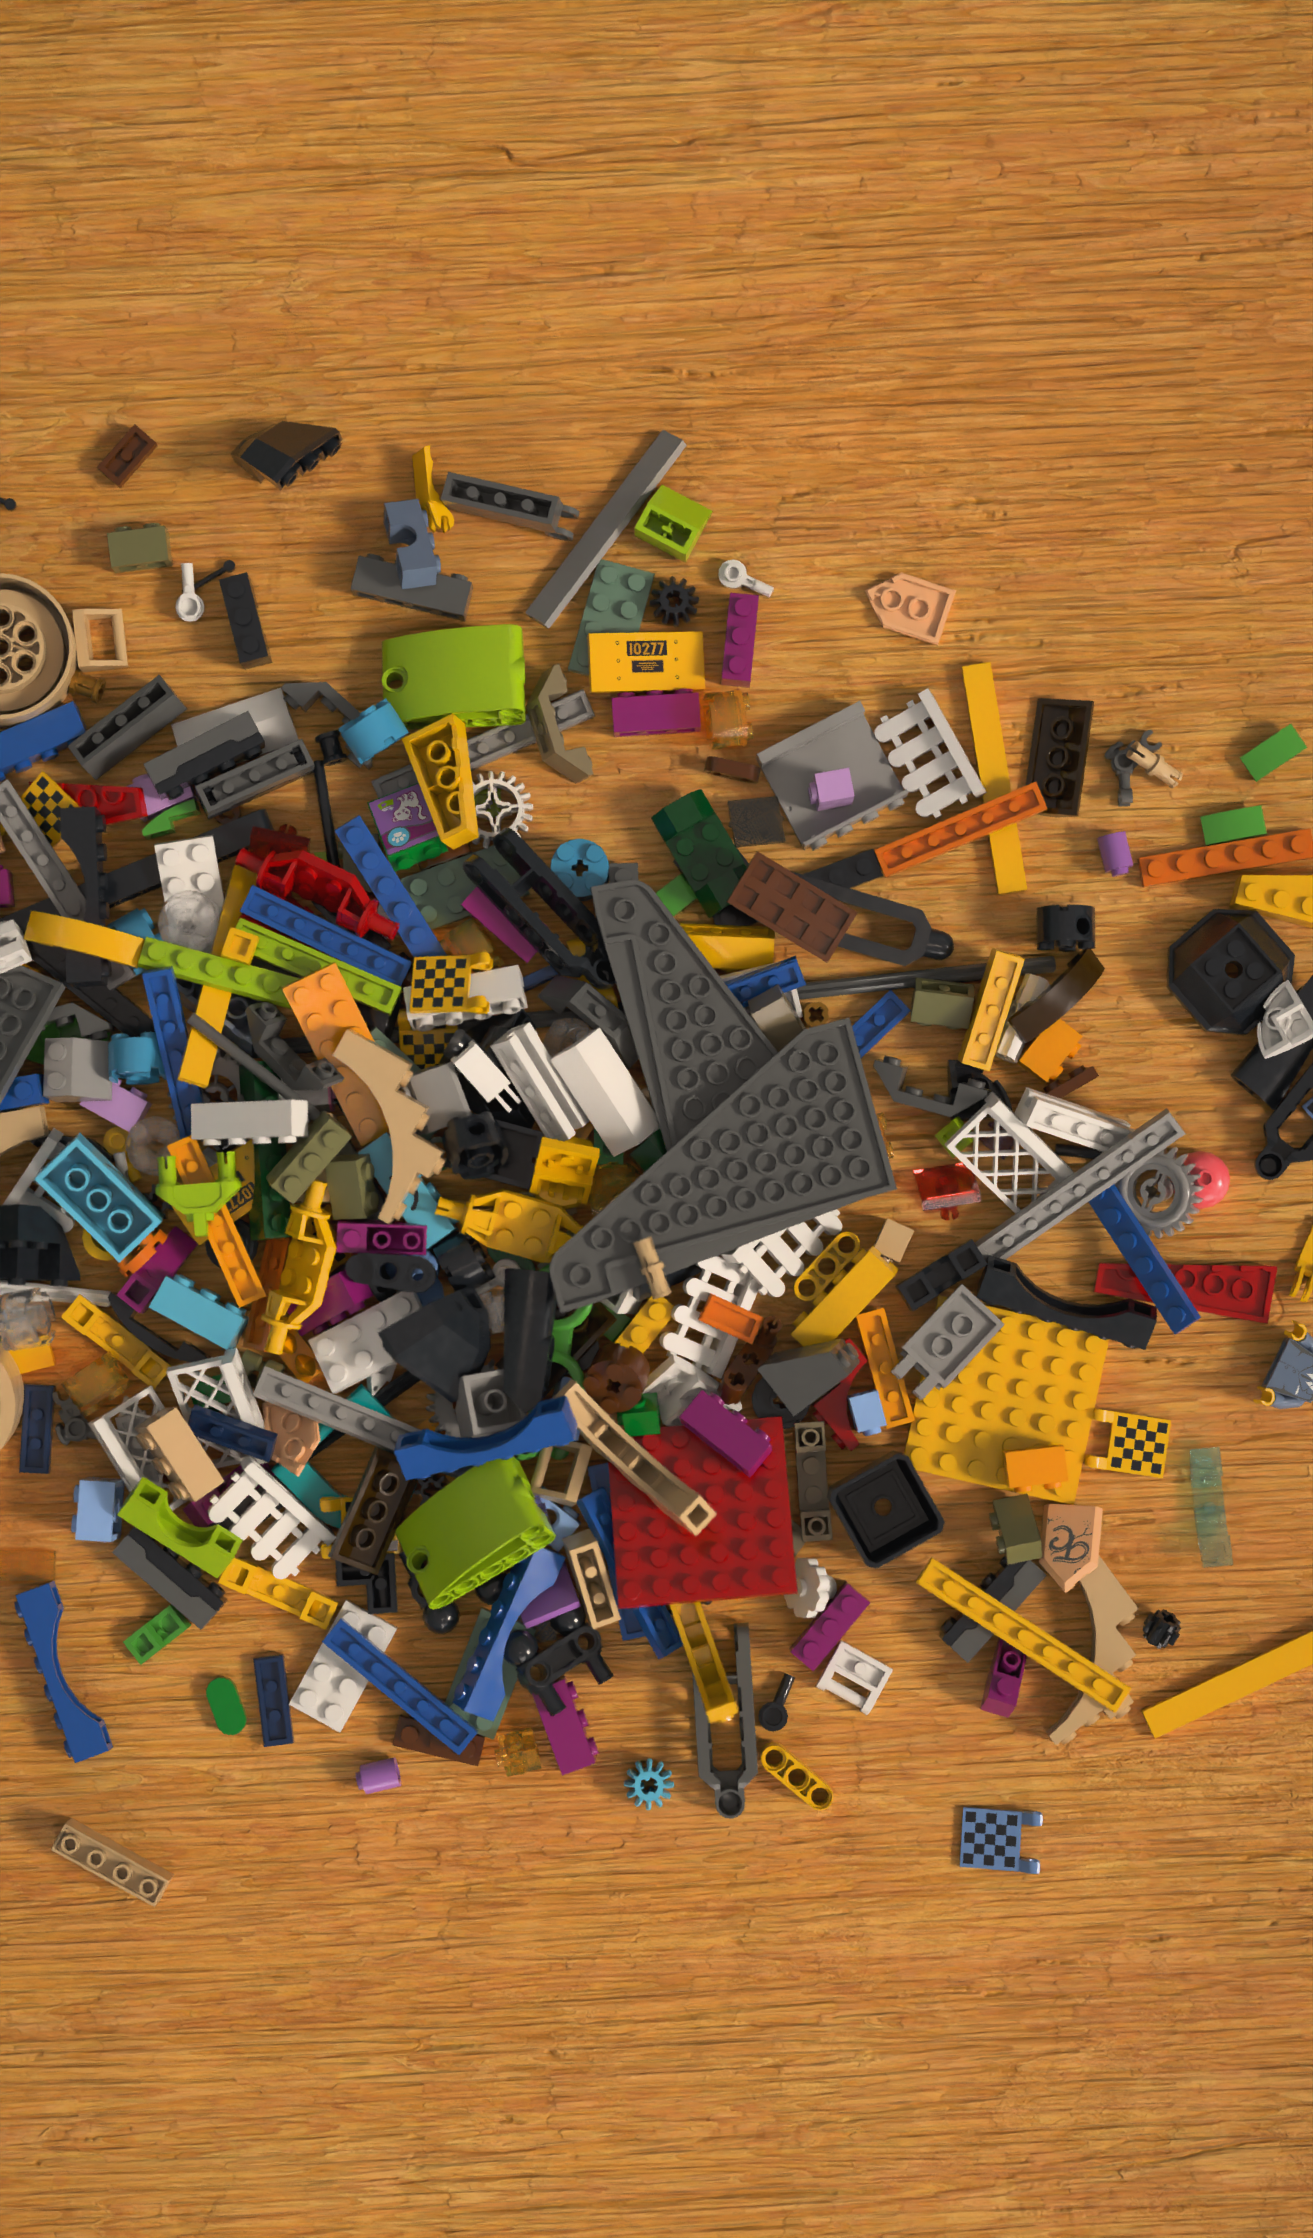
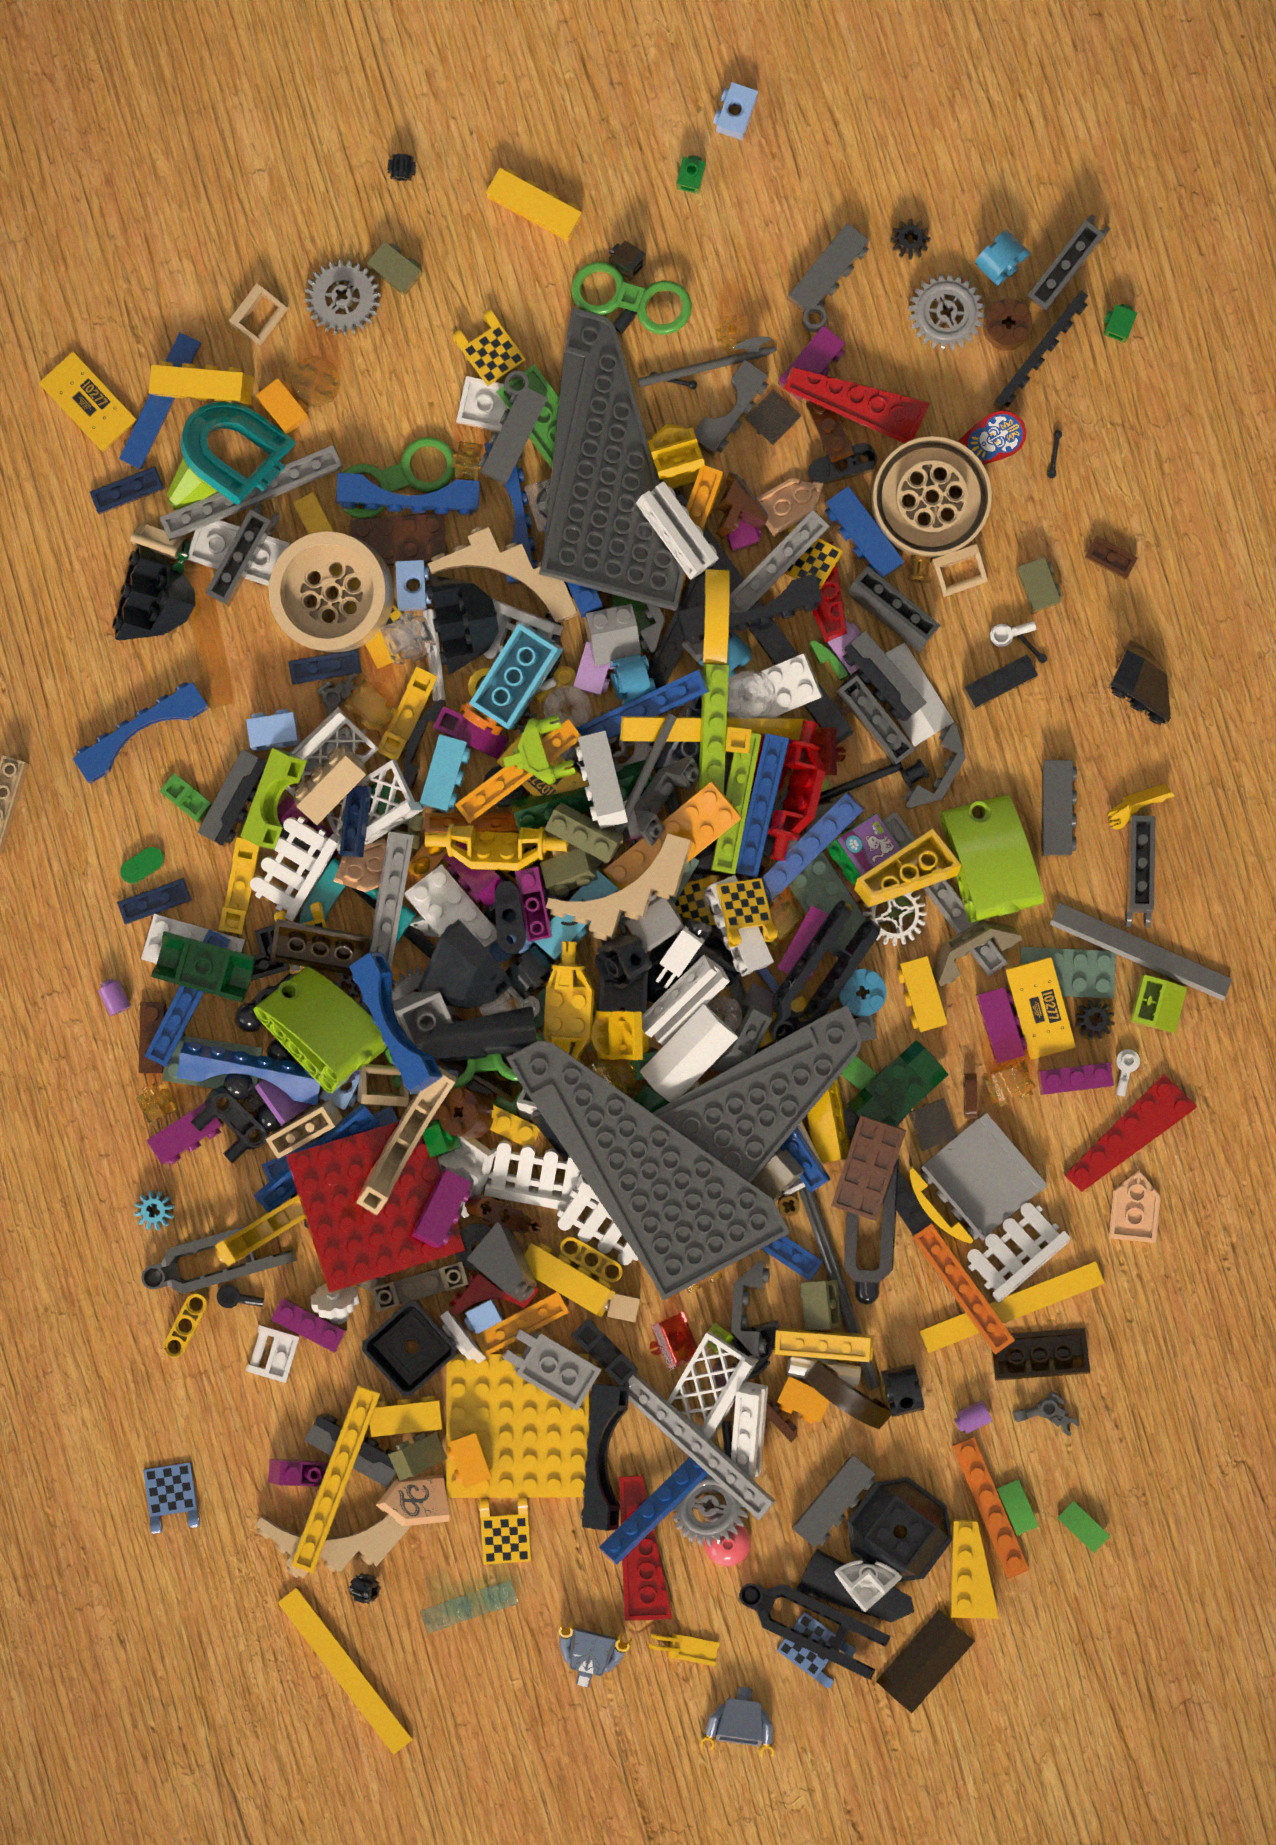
camera: 75 degrees right, 0 degrees up
(366, 1657) = (204, 967): none -> dark green piece
(373, 731) = (932, 805): dark azure brick -> none
(407, 525) = (1107, 793): sand blue arch -> none
(598, 799) = (921, 994): none -> yellow brick
(652, 1268) = (557, 1121): tan pin -> none
(730, 1318) = (532, 1192): orange tile -> none
(808, 571) = (1143, 1122): none -> red wing
(831, 789) = (970, 1178): lavender brick -> none
(886, 823) = (956, 1229): none -> yellow slope
(895, 1440) = (461, 1337): none -> white plate
(966, 1532) = (406, 1416): none -> yellow brick
(1154, 764) = (1051, 1433): tan pin -> none
(1178, 1041) = (833, 1500): none -> dark grey brick

